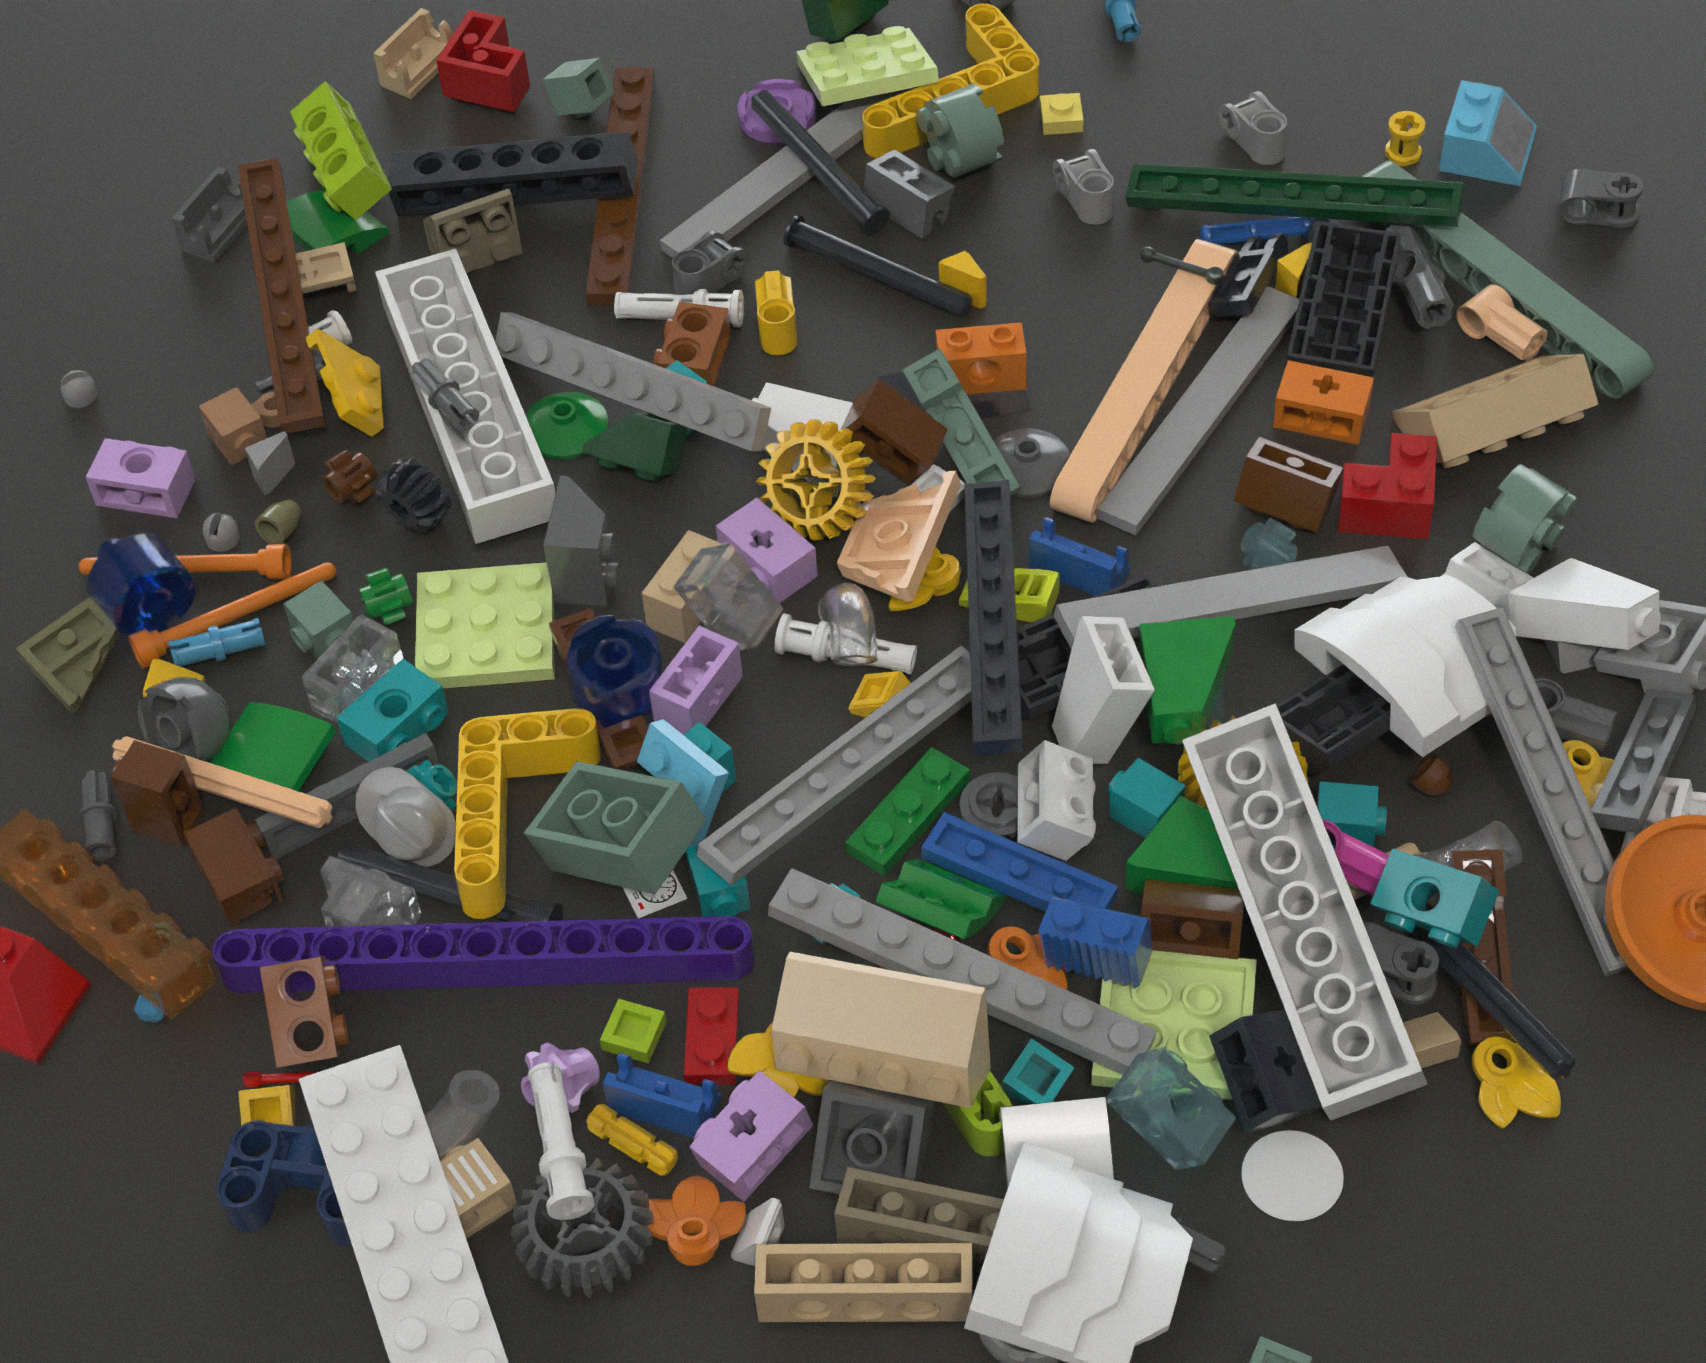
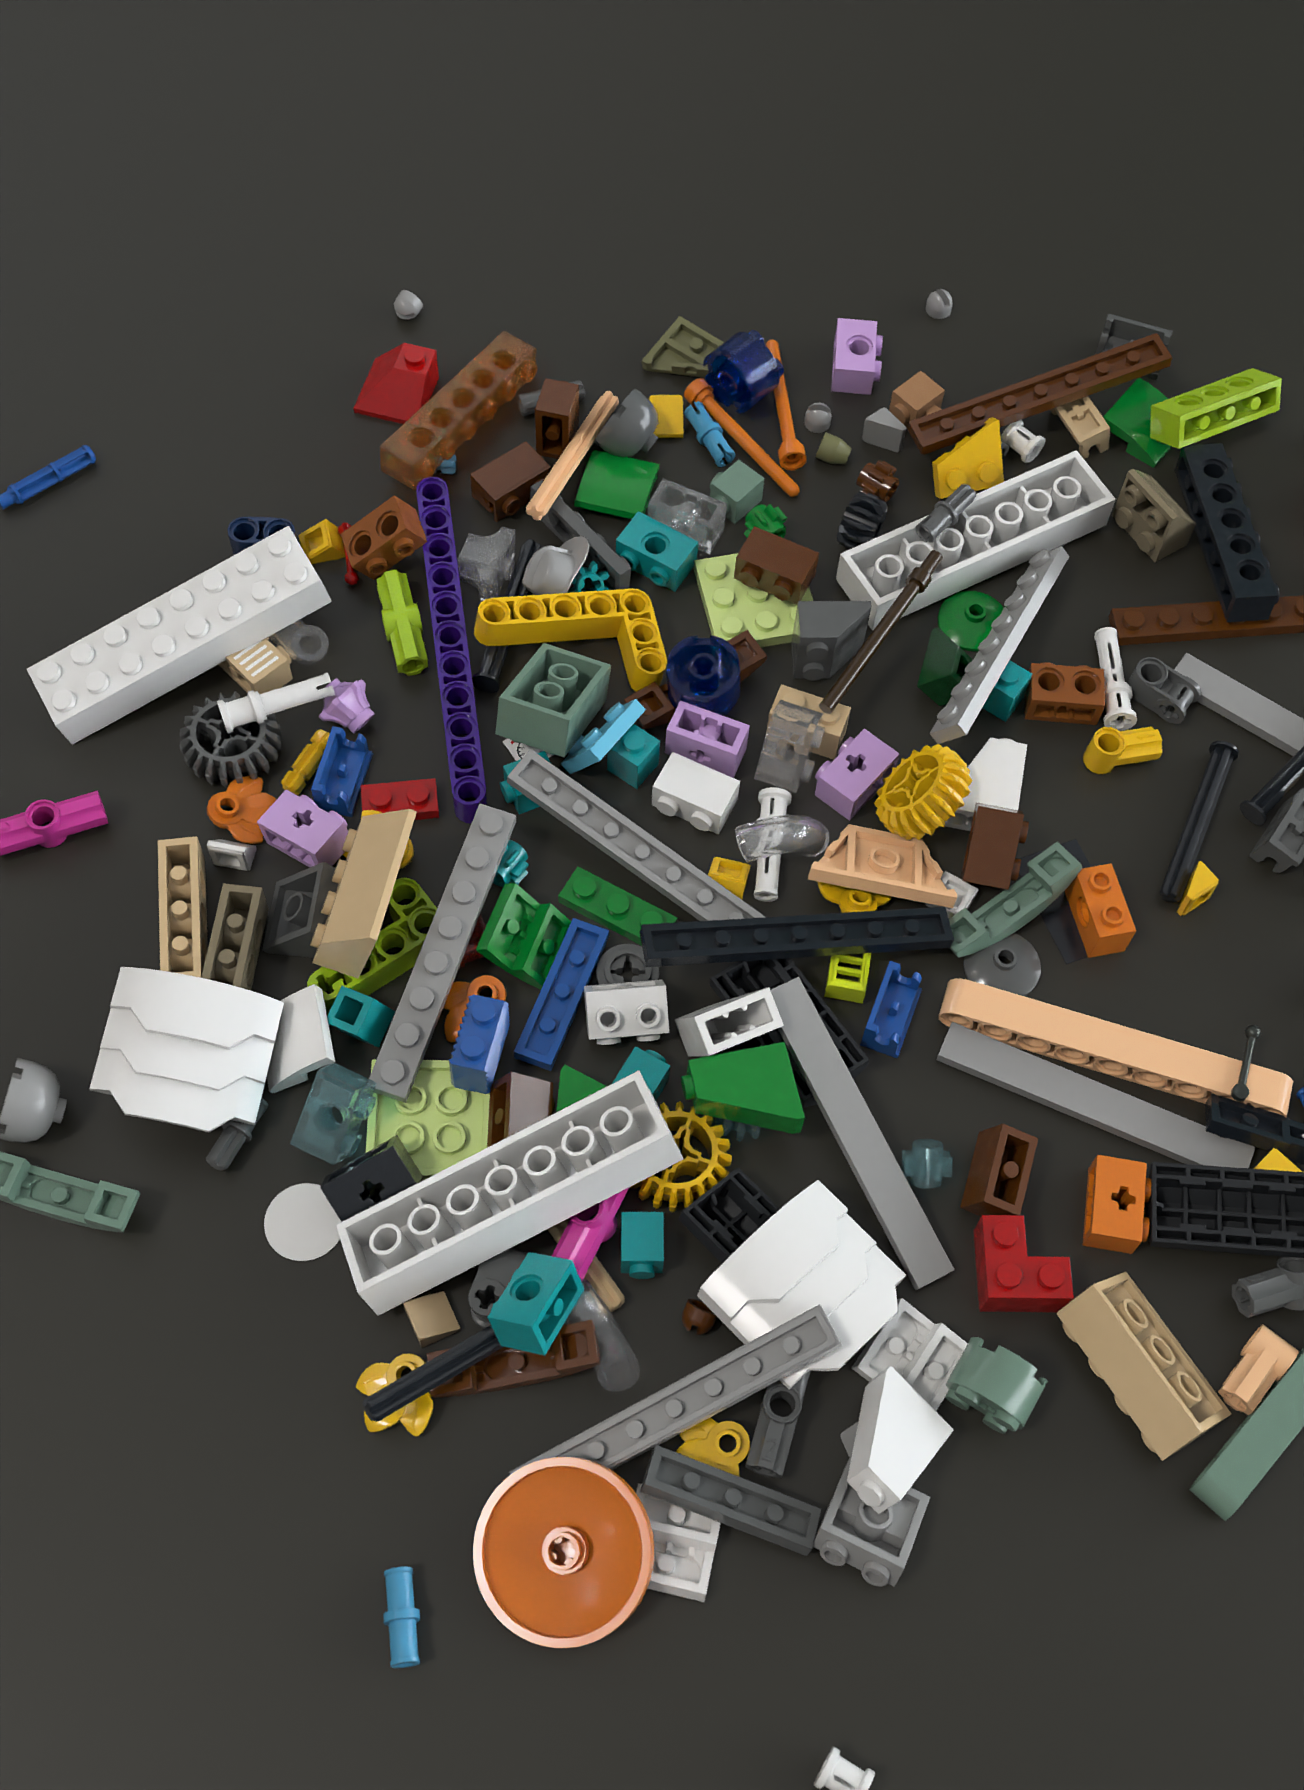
camera: 75 degrees right, 10 degrees up
(434, 1011) = (402, 623): none -> lime piece
(462, 581) = (776, 565): none -> reddish brown brick
(537, 437) = (915, 583): none -> dark brown bar
(633, 1030) = (395, 748): lime plate -> none
(765, 709) = (695, 793): none -> white brick

